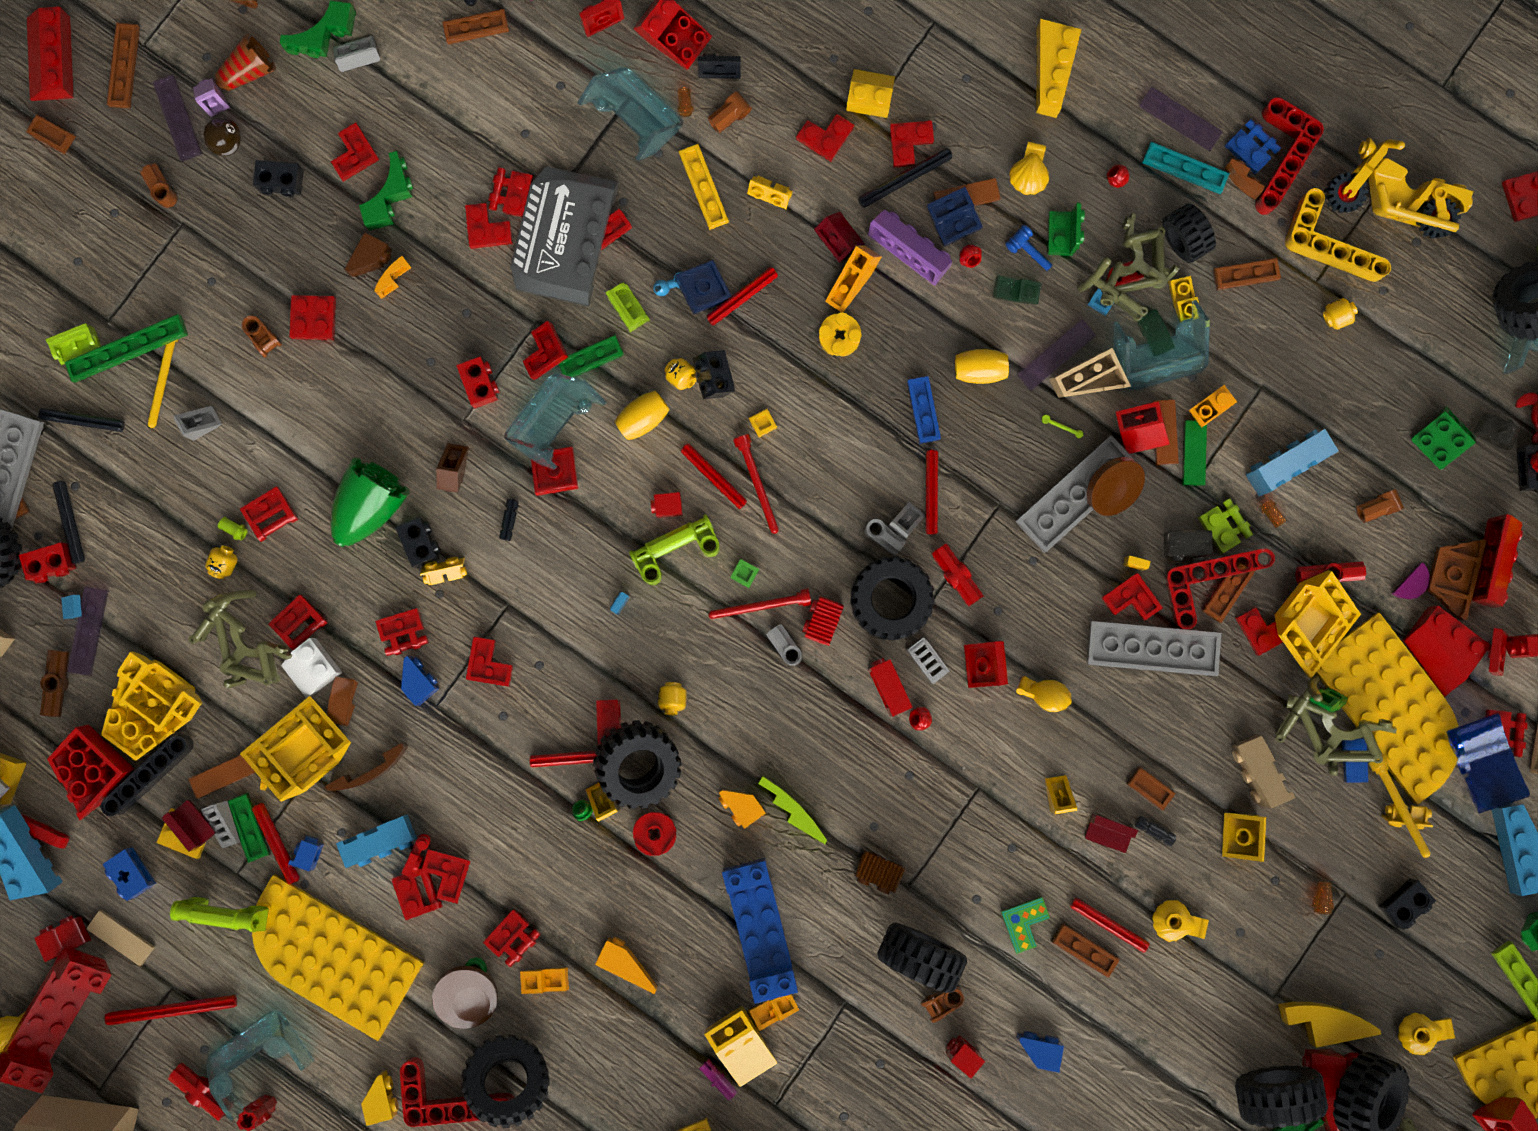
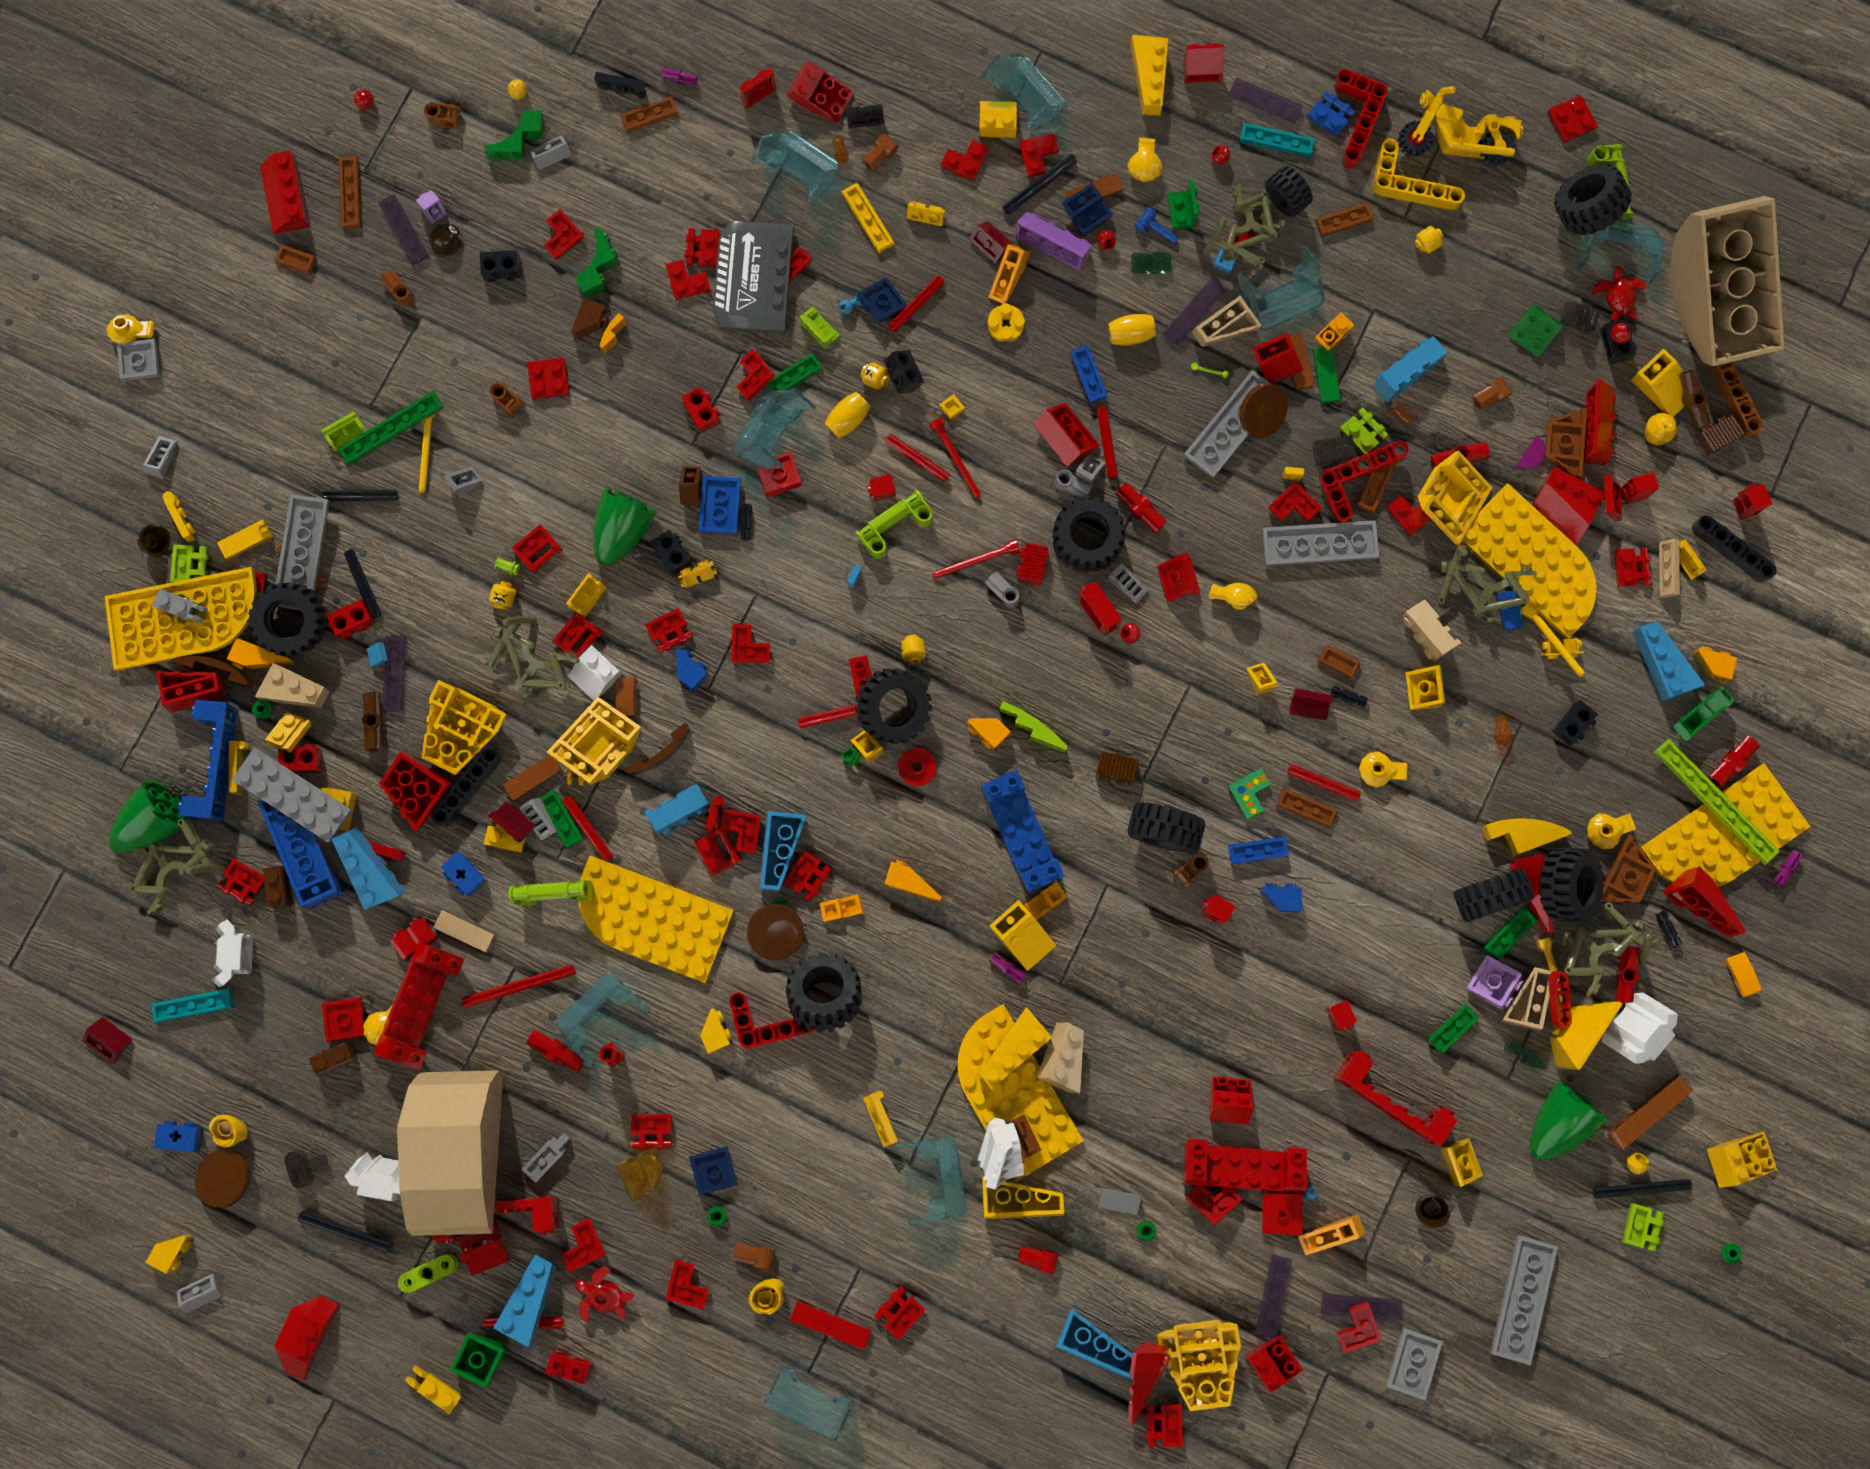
camera: 10 degrees left, 5 degrees down
(244, 64) = (455, 176): dark orange cone -> none
(307, 853) = (617, 831): blue brick -> none
(315, 577) = (586, 595): none -> yellow hinge
(482, 495) = (720, 505): none -> blue plate
(485, 898) = (779, 844): none -> dark azure wedge
(744, 573) = (958, 535): bright green plate -> none
(886, 476) = (1065, 434): none -> red slope
(911, 61) = (1028, 87): none -> clear light blue windscreen
(1022, 991) = (1258, 850): none -> blue plate
(1117, 65) = (1203, 63): none -> red slope
(1156, 333) = (1275, 279): clear green slope -> none
(1182, 296) = (1292, 245): yellow slope -> none
(1238, 174) = (1333, 146): dark orange slope -> none
(1331, 700) = (1477, 559): green slope -> none
(1437, 1087) = (1628, 874): none -> dark orange wing
(1488, 763) = (1620, 591): clear blue panel -> none

